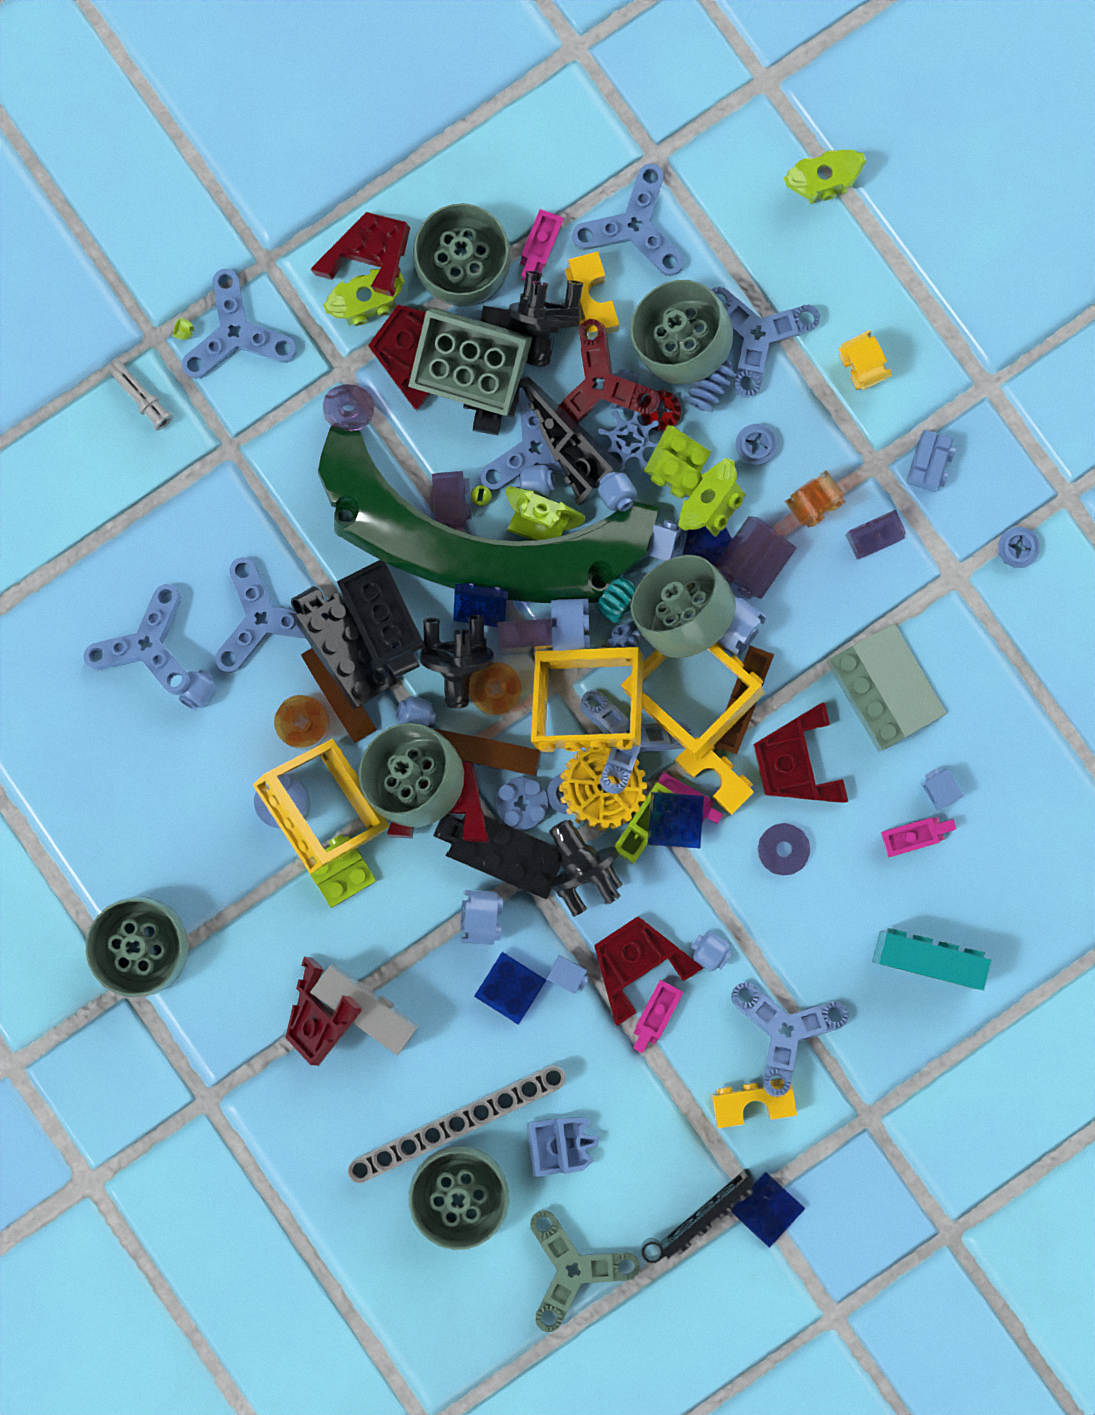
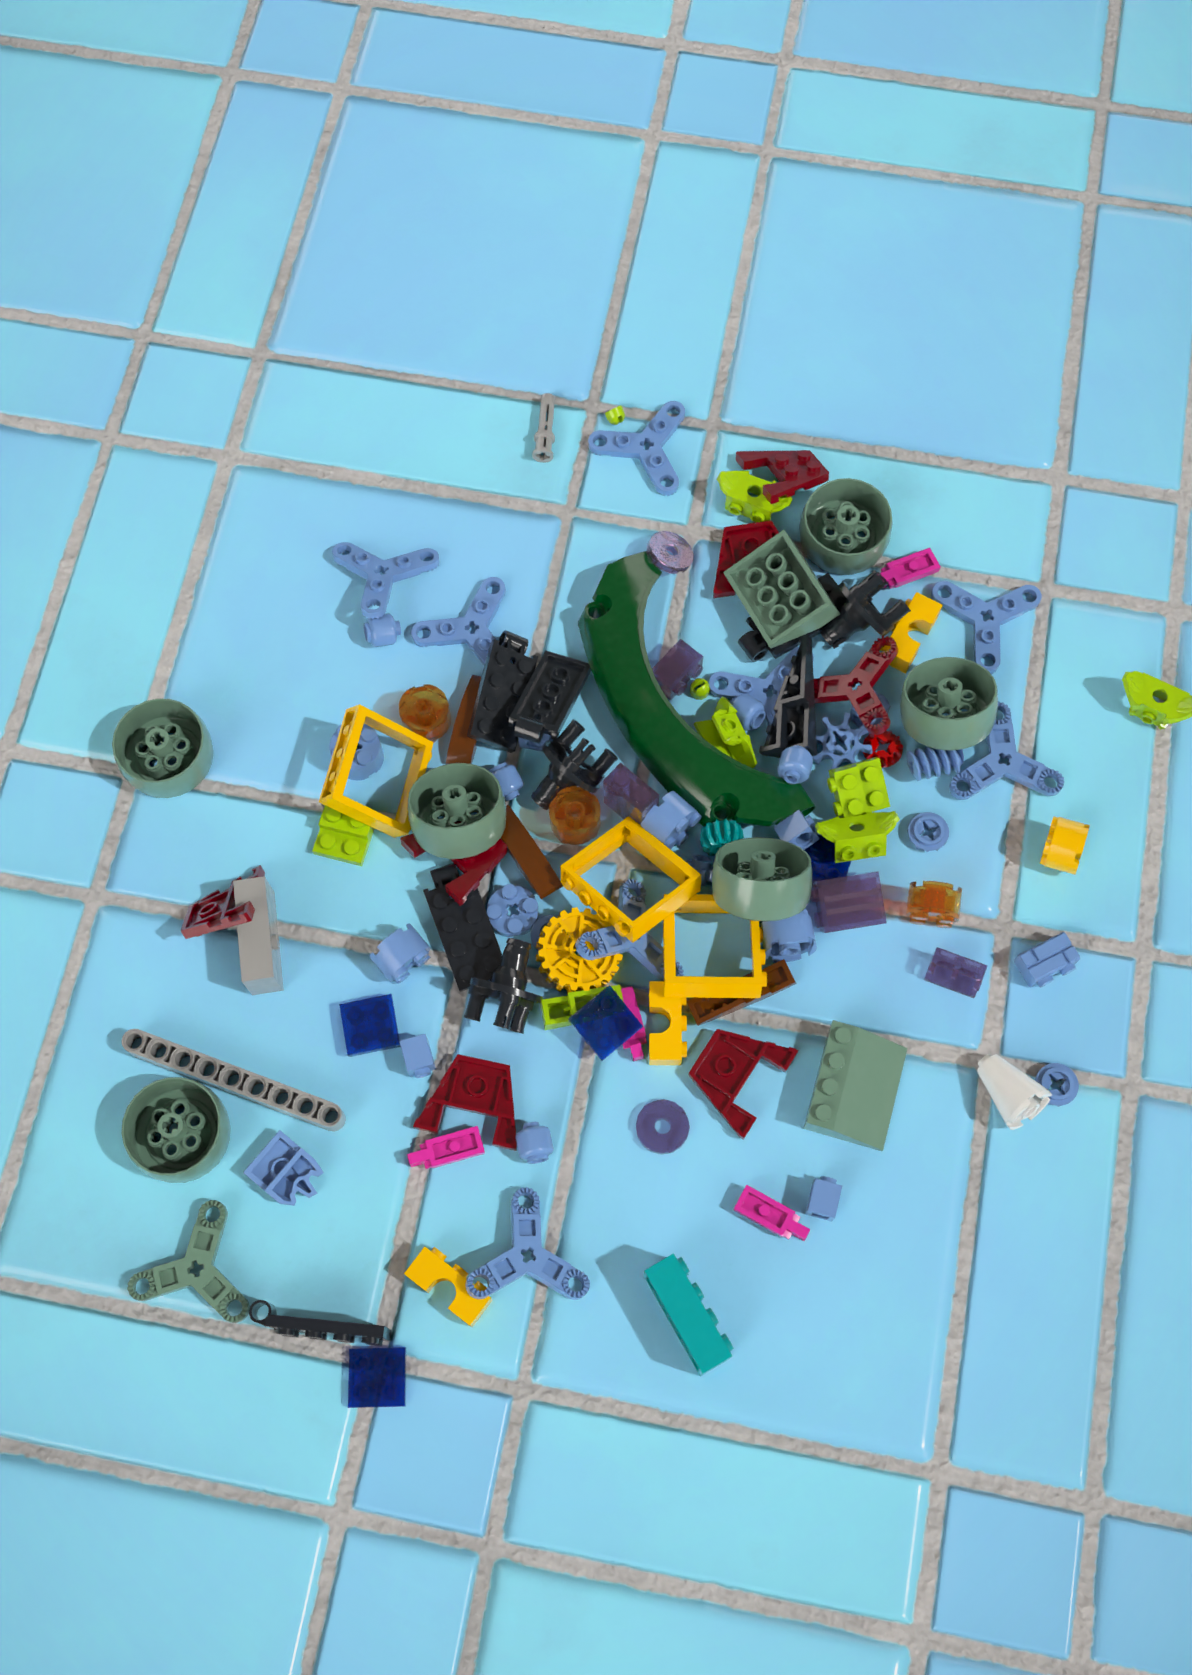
camera: 45 degrees right, 15 degrees down
(480, 600) = (625, 745): clear blue tile -> none
(994, 584) = (1012, 1090): none -> white cone

